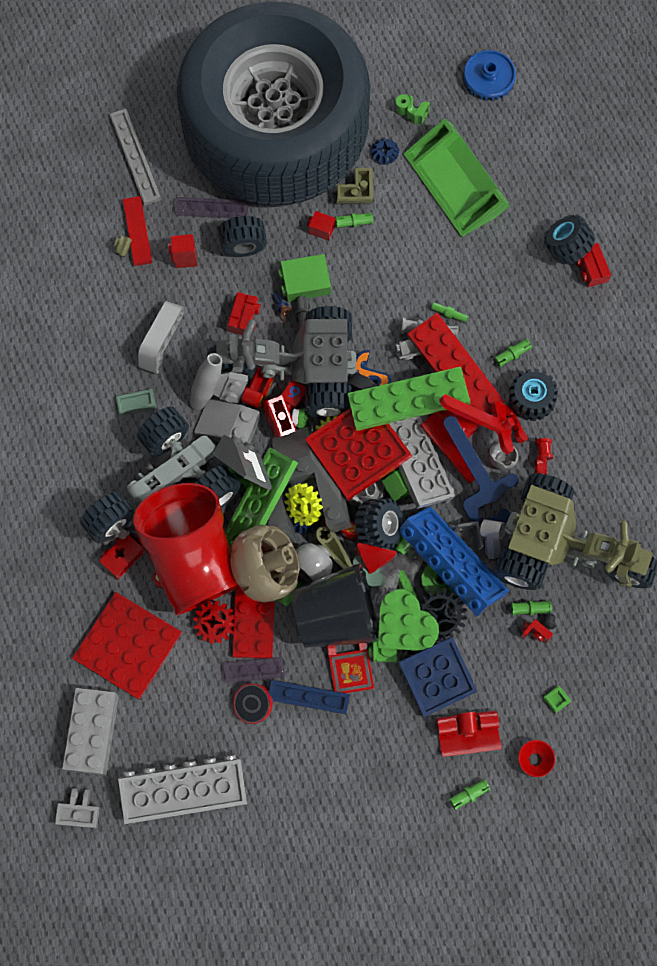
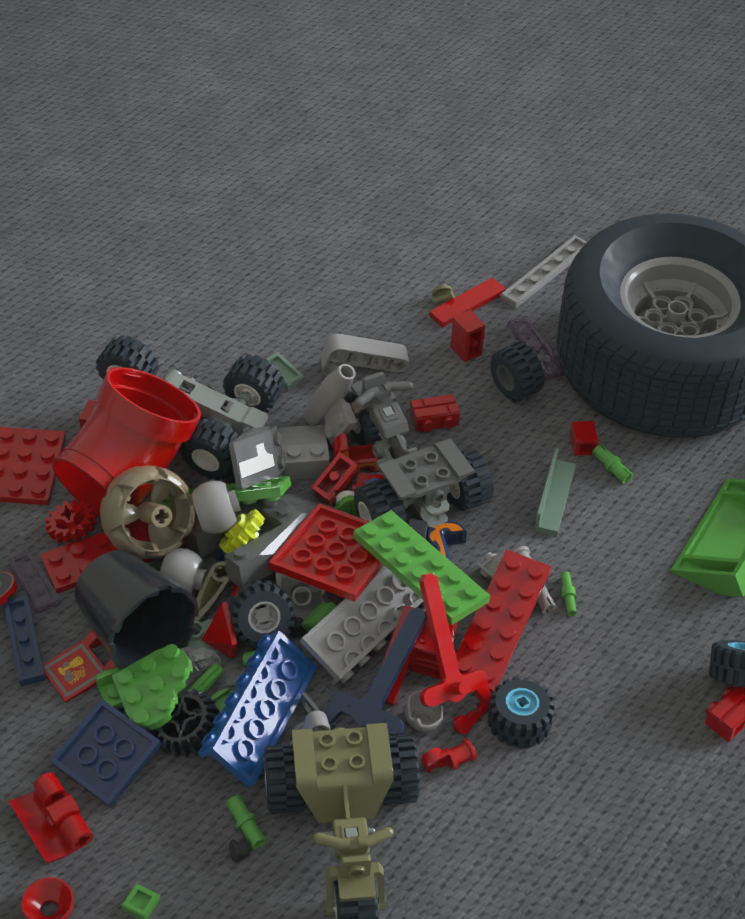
camera: 60 degrees right, 25 degrees down
(282, 307) = (467, 442): piece -> none
(285, 512) = (215, 506): none -> light grey wheel
(305, 277) = (514, 447): bright green brick -> none
(357, 193) = (650, 455): olive brick -> none
(361, 274) = (554, 496): none -> sand green panel
(379, 156) = (715, 467): dark blue gear -> none
(513, 352) = (562, 674): bright green pin -> none
(539, 631) = (219, 836): red bracket -> none

